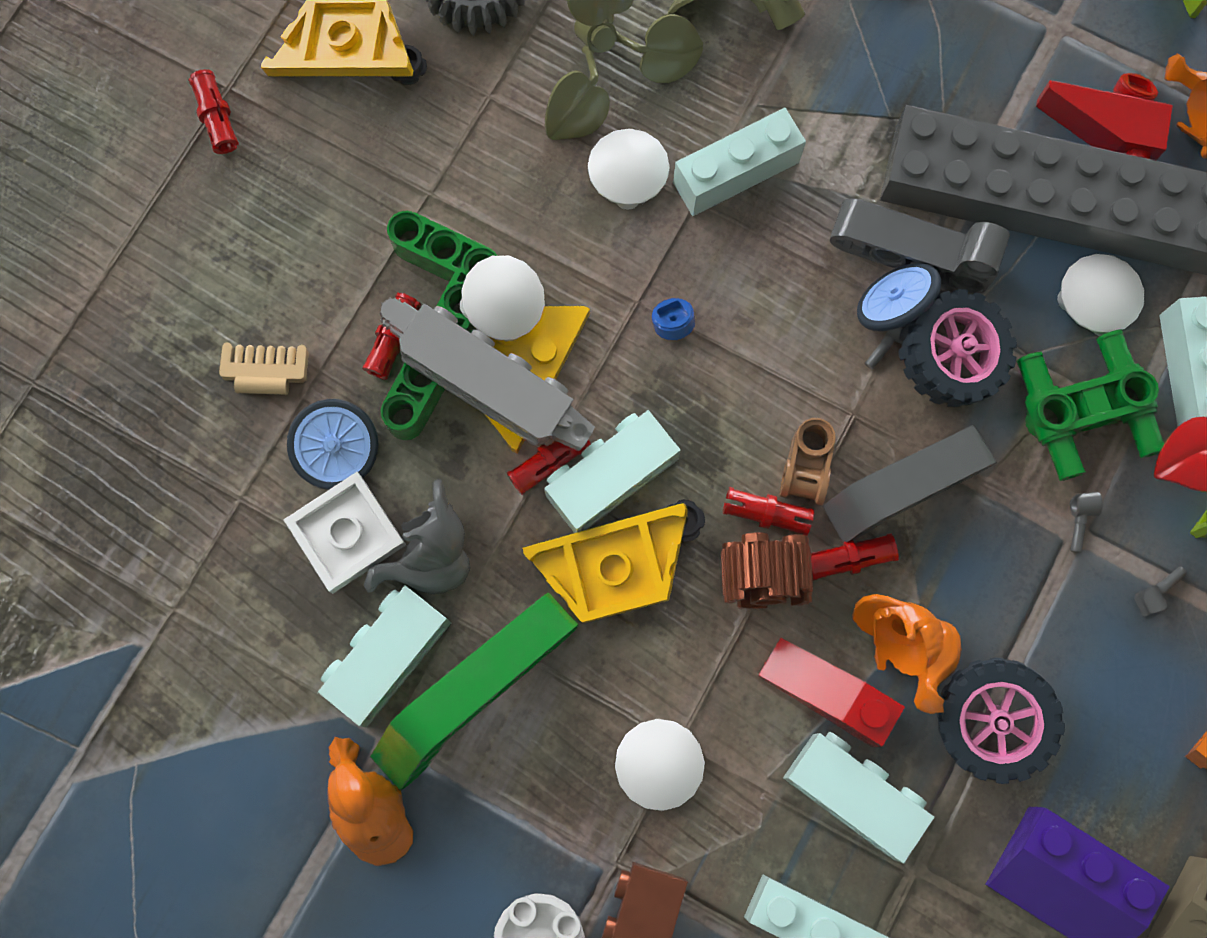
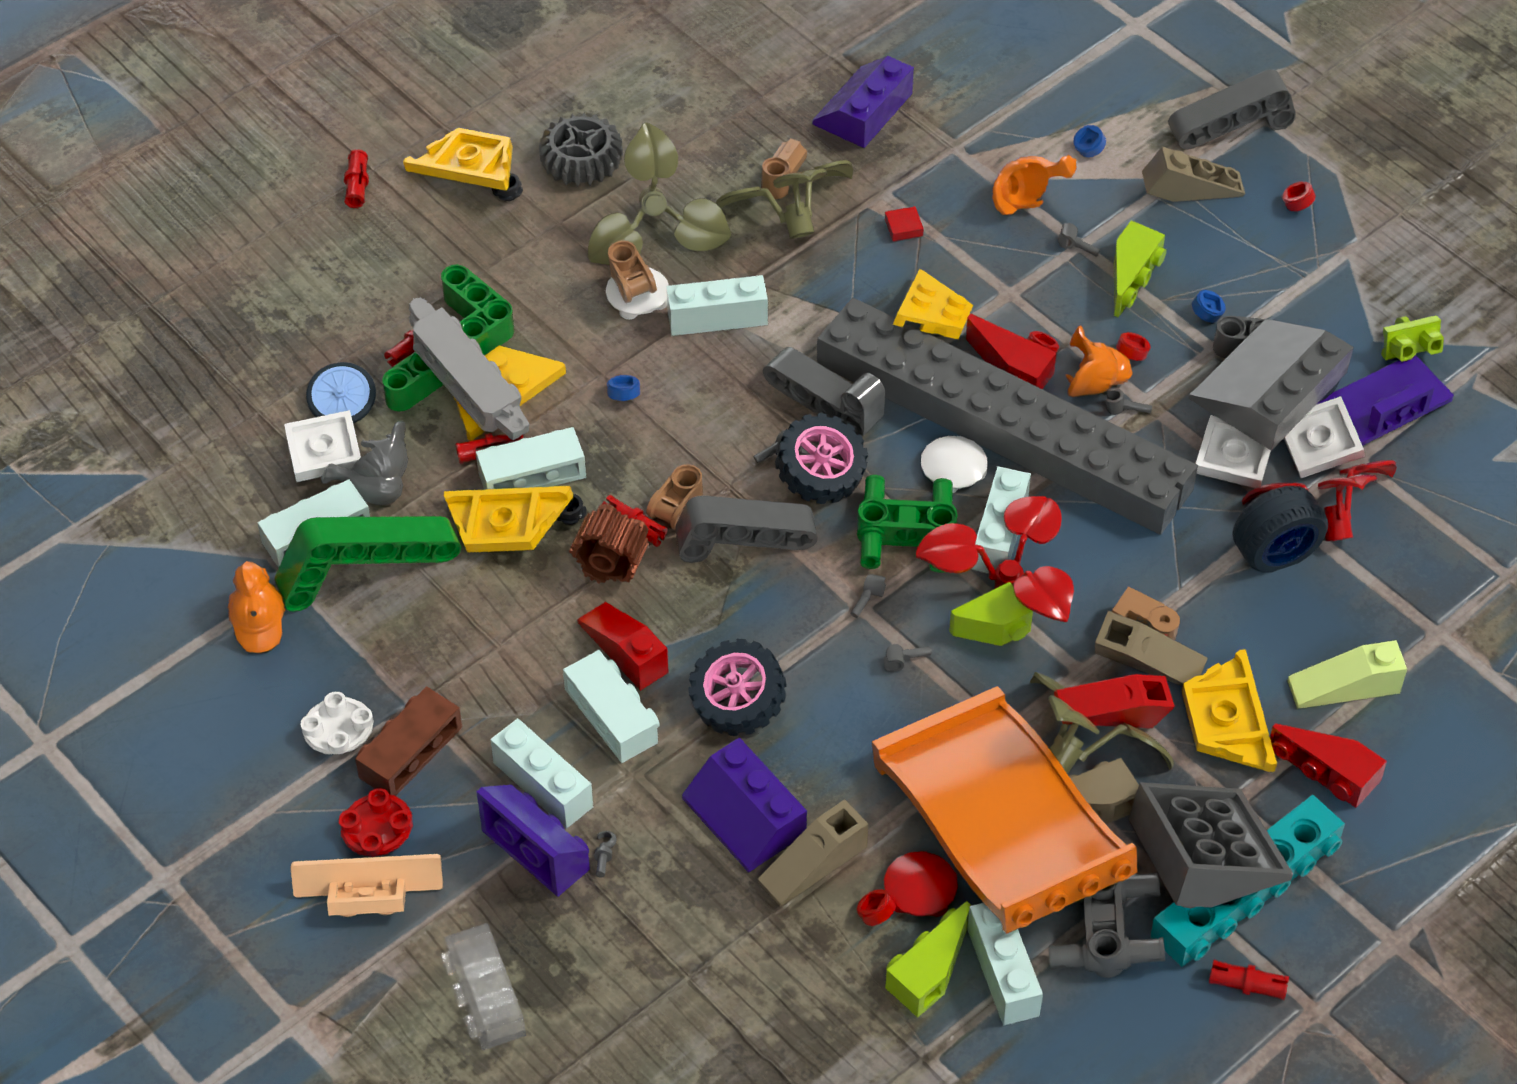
camera: 20 degrees right, 25 degrees down
(261, 377) = (312, 343): tan piece -> none
(502, 298) = (503, 332): white dish -> none
(627, 159) = (630, 271): none -> medium nougat piece
(659, 764) = (477, 650): white dish -> none
(854, 556) = (658, 565): red pin -> none
(899, 297) = (791, 413): light blue wheel -> none
(912, 642) = (695, 618): orange piece -> none
(998, 83) = (934, 307): none -> yellow wing

